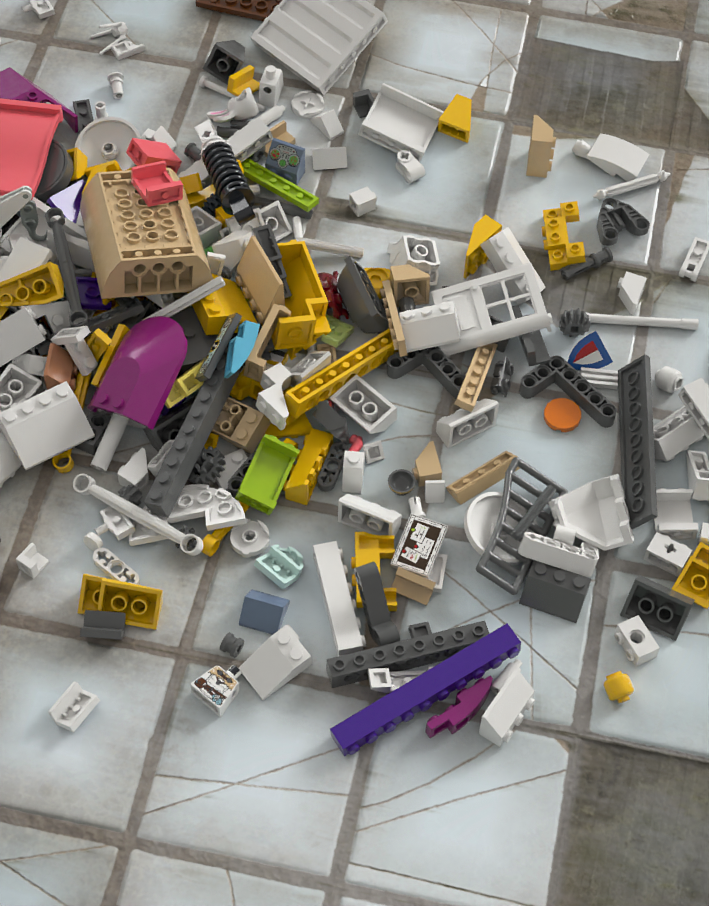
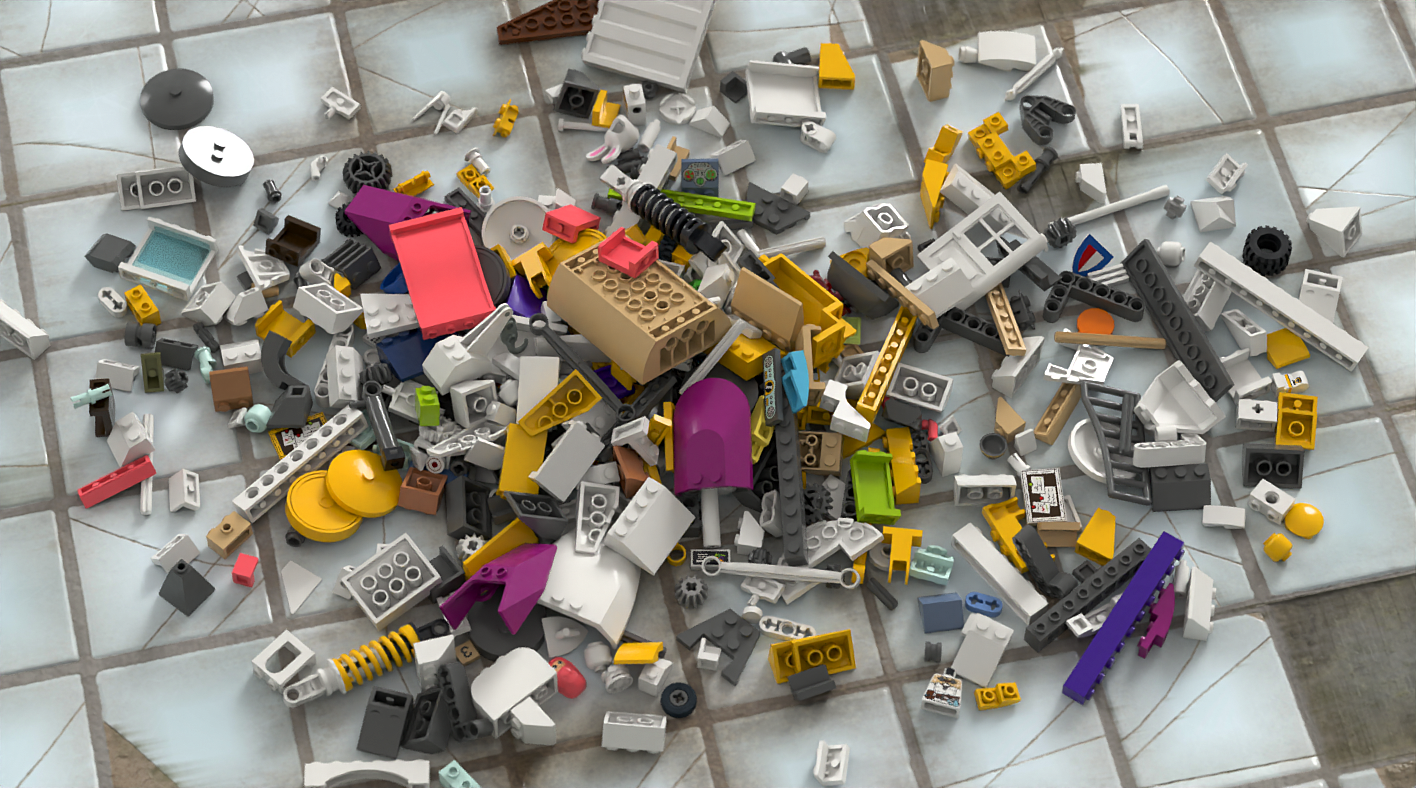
camera: 25 degrees left, 0 degrees up
(33, 60) = (368, 167): none -> dark grey gear
(53, 498) = (691, 591): none -> light grey gear
(59, 84) = (415, 185): none -> yellow hinge
(64, 552) = (729, 633): none -> dark grey wing
(101, 479) = (699, 555): none -> tile
(104, 94) = (473, 180): none -> yellow slope
(156, 65) = (502, 125): none -> yellow hinge
(221, 572) = (882, 594): none -> dark grey axle
(235, 290) = (750, 330): none -> white tile
(256, 540) = (901, 542): none -> yellow piece
(267, 713) = (1000, 696): none -> yellow slope
(292, 81) = (649, 94): none -> dark grey plate
(306, 622) = (983, 604): none -> medium blue beam
(334, 212) = (773, 211): none -> dark grey wing
(433, 99) = (796, 57): none -> dark grey piece
(450, 604) = (1098, 538): none -> yellow slope
(517, 214) = (945, 144): none -> yellow brick
(532, 446) = (1088, 365): none -> white wing
(566, 432) = (1109, 340): none -> tan axle
(583, 635) = (1224, 516): none -> white slope
(660, 672) = (1304, 520): none -> yellow dish
(695, 341) = (1175, 207): none -> light grey gear

